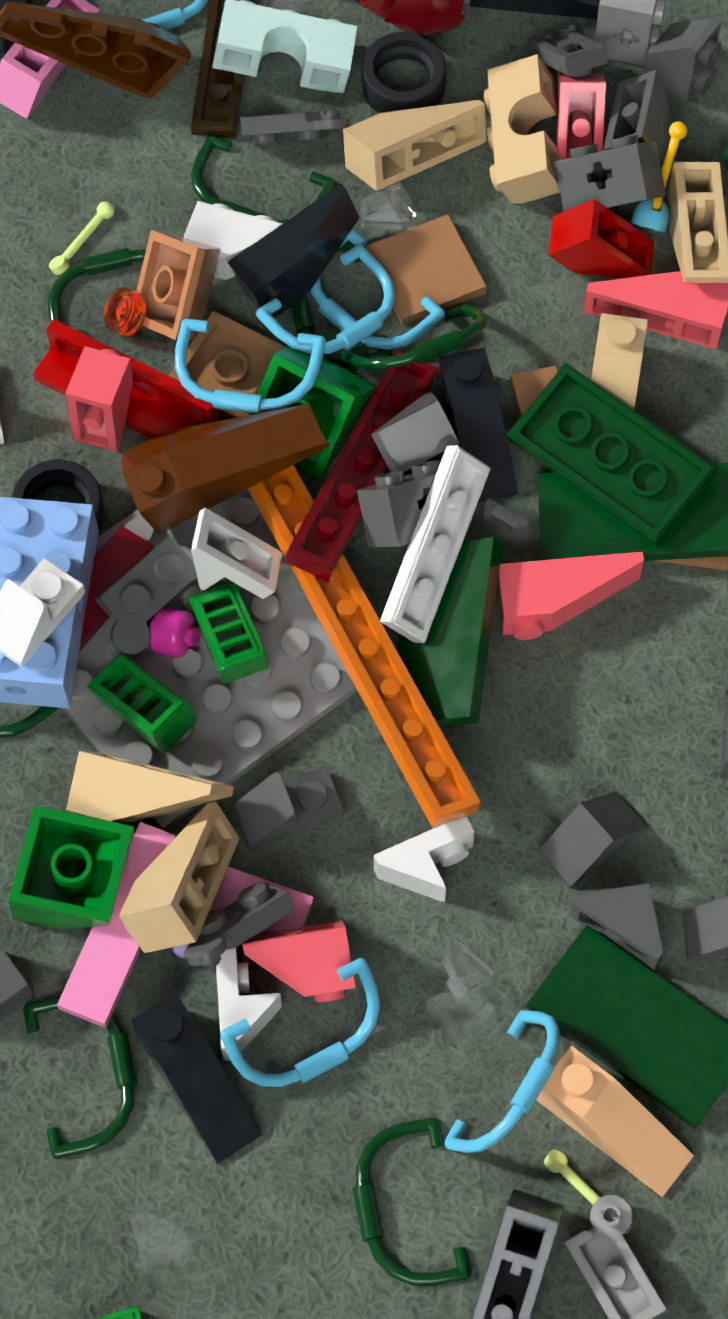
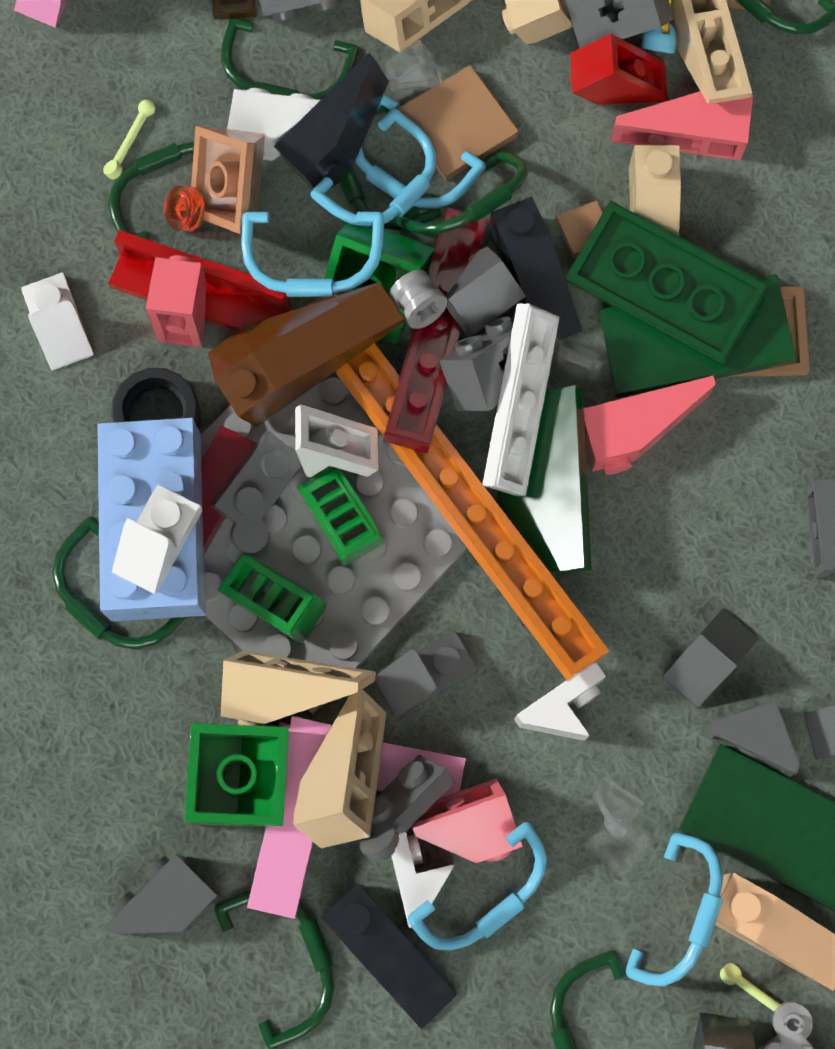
camera: 10 degrees left, 10 degrees up
(173, 632) = (289, 522): dark pink piece -> none
(229, 359) = (293, 242): medium nougat tile -> none
(346, 427) = (418, 299): none -> light grey wheel

